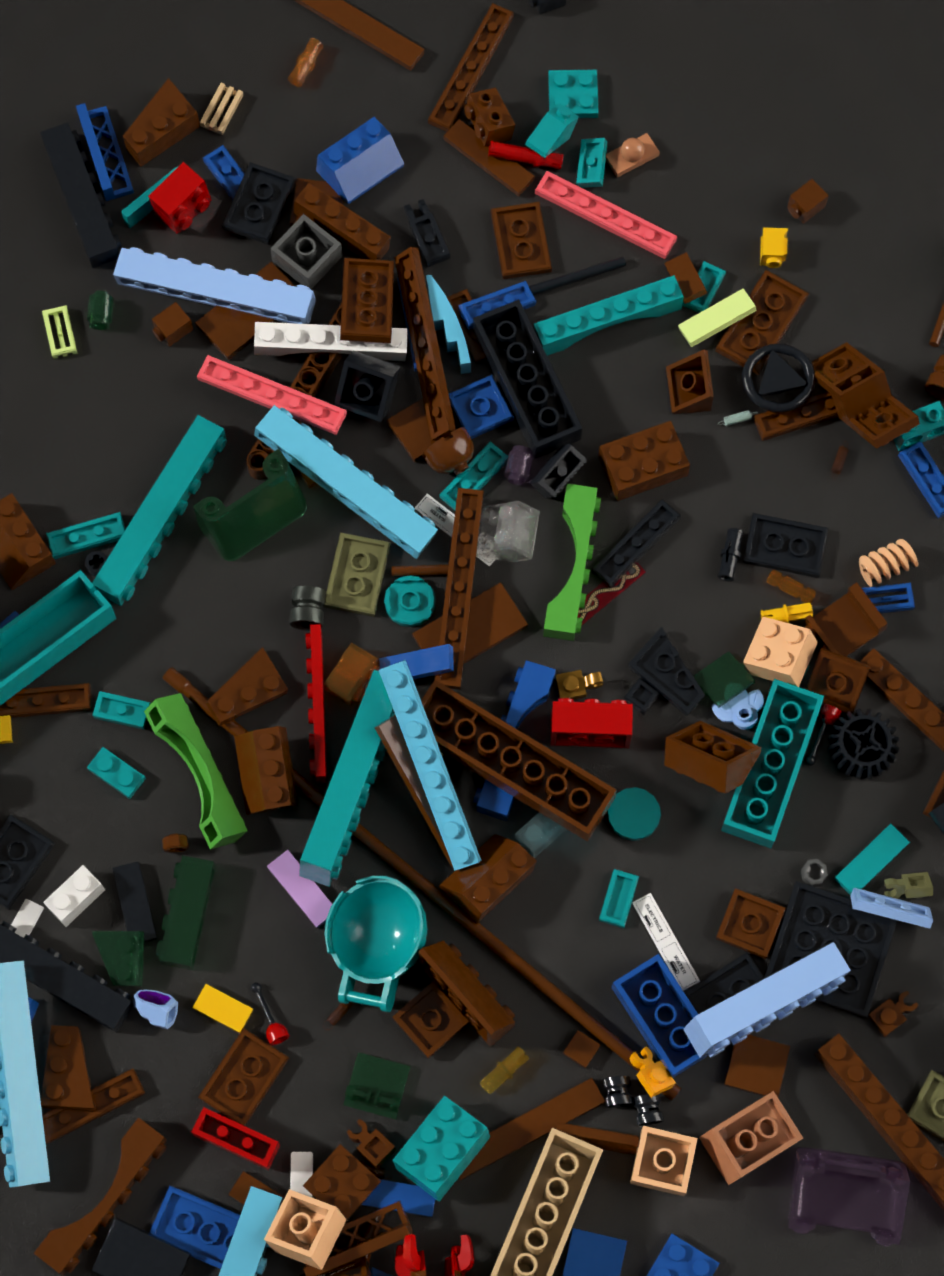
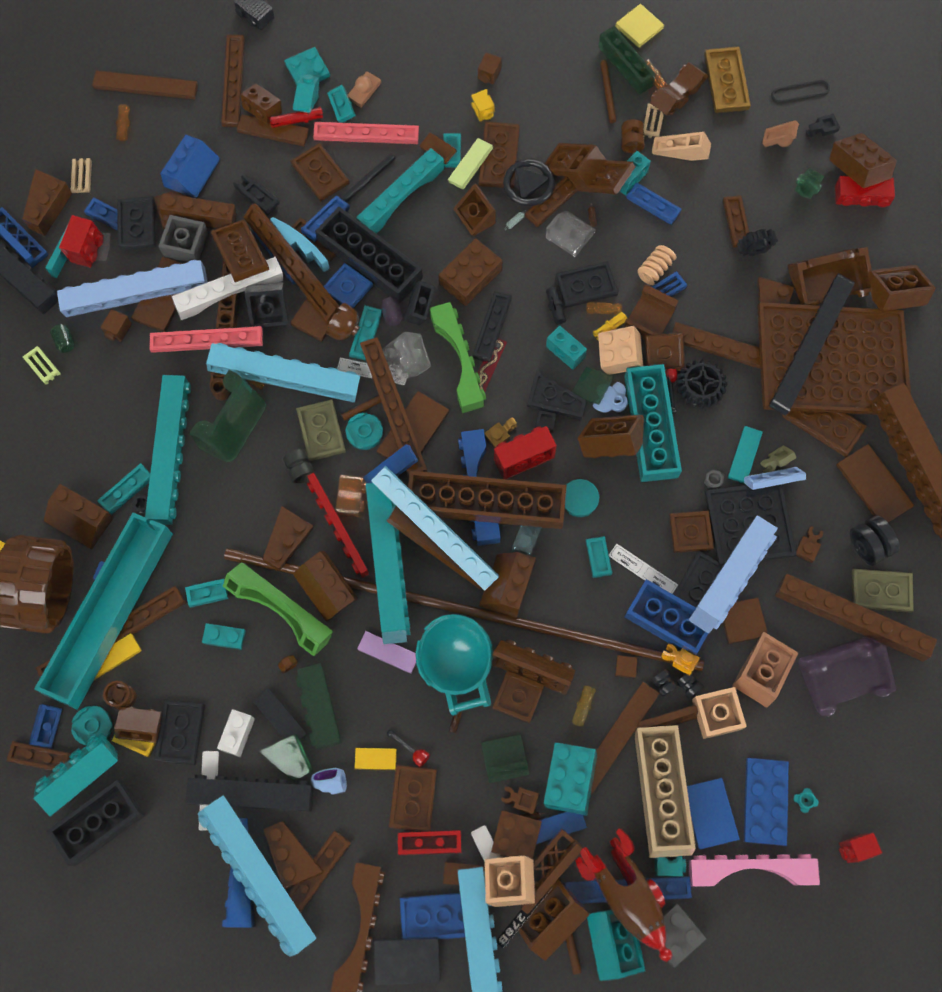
camera: 25 degrees left, 0 degrees up
(715, 615) = (566, 347): none -> teal brick
(798, 467) = (569, 232): none -> clear slope

